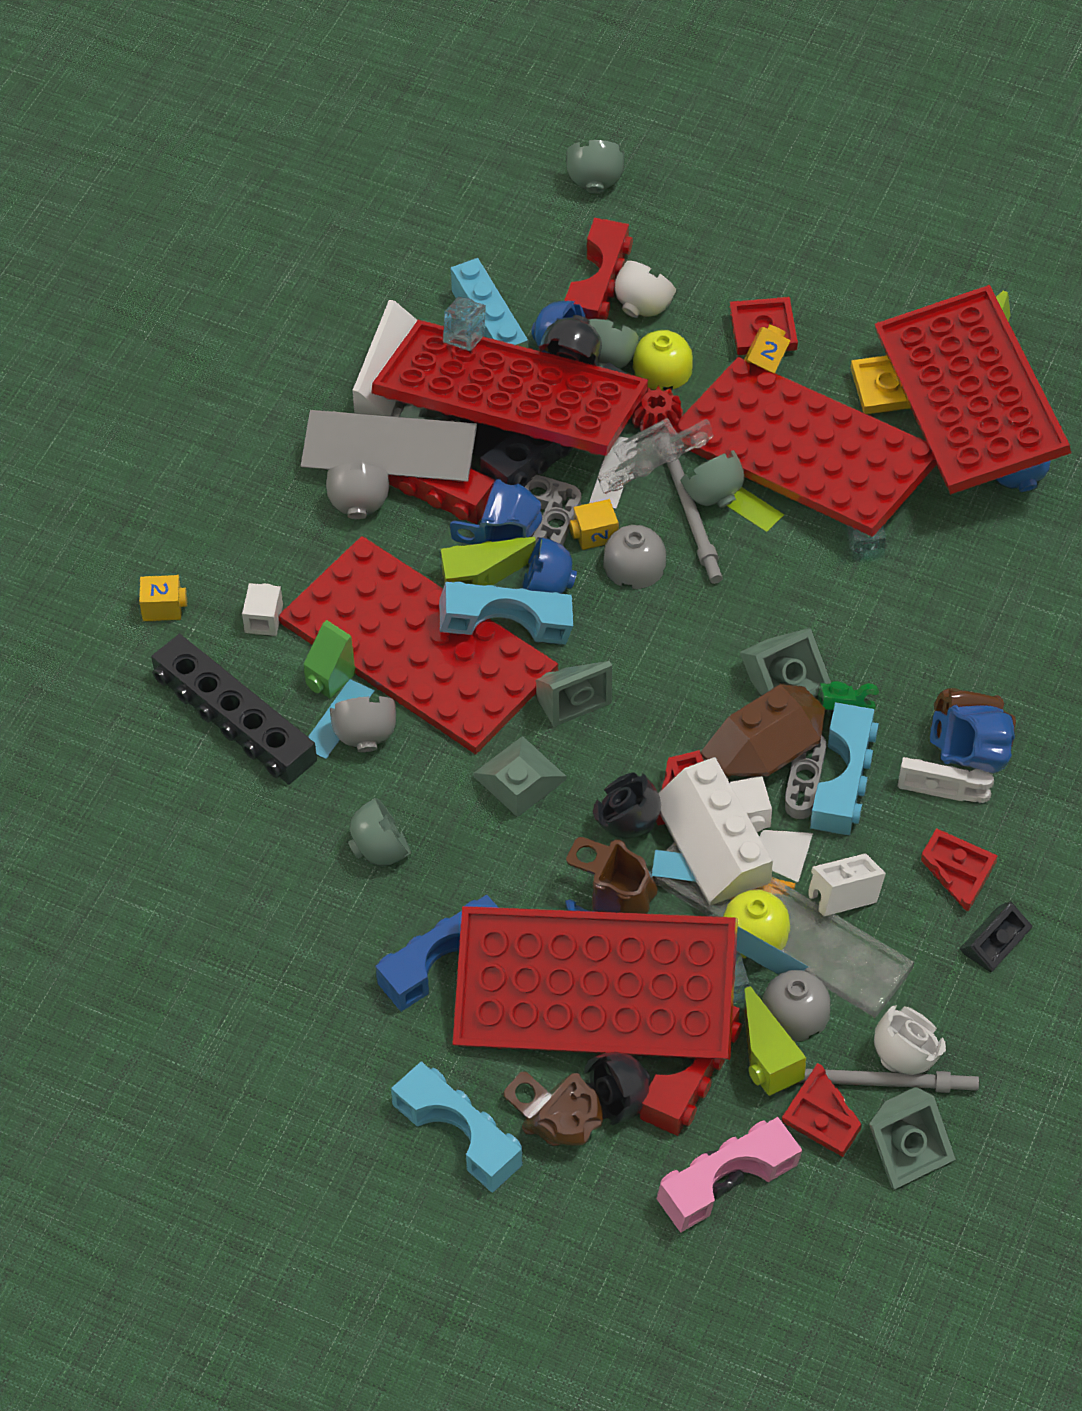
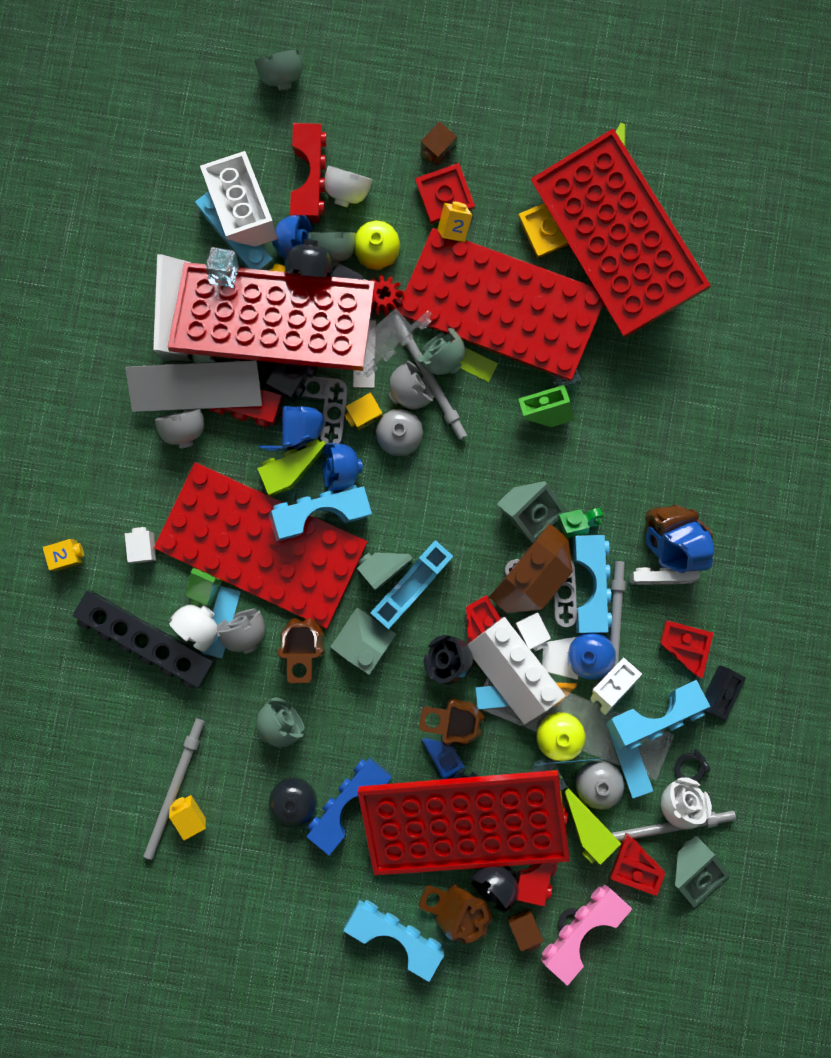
camera: 15 degrees left, 30 degrees up
(222, 914) = (187, 817): none -> yellow brick
(253, 842) = (191, 743): none -> light grey bar
(306, 698) = (196, 625): none -> white cylinder
(366, 935) = (292, 802): none -> black cylinder
(436, 752) = (299, 644): none -> reddish brown piece
(507, 272) = (239, 200): none -> white slope
(632, 701) = (412, 584): none -> medium azure arch
(645, 1154) = (525, 930): none -> reddish brown brick
(660, 507) = (409, 388): none -> light grey cylinder
(769, 274) = (438, 143): none -> reddish brown brick
(820, 841) = (591, 656): none -> blue cylinder
(836, 561) = (548, 407): none -> bright green slope
(846, 980) = (633, 770): none -> medium azure sticker
(859, 930) = (683, 704): none -> medium azure arch
(879, 783) = (618, 585): none -> light grey bar
(940, 999) = (696, 755): none -> black piece

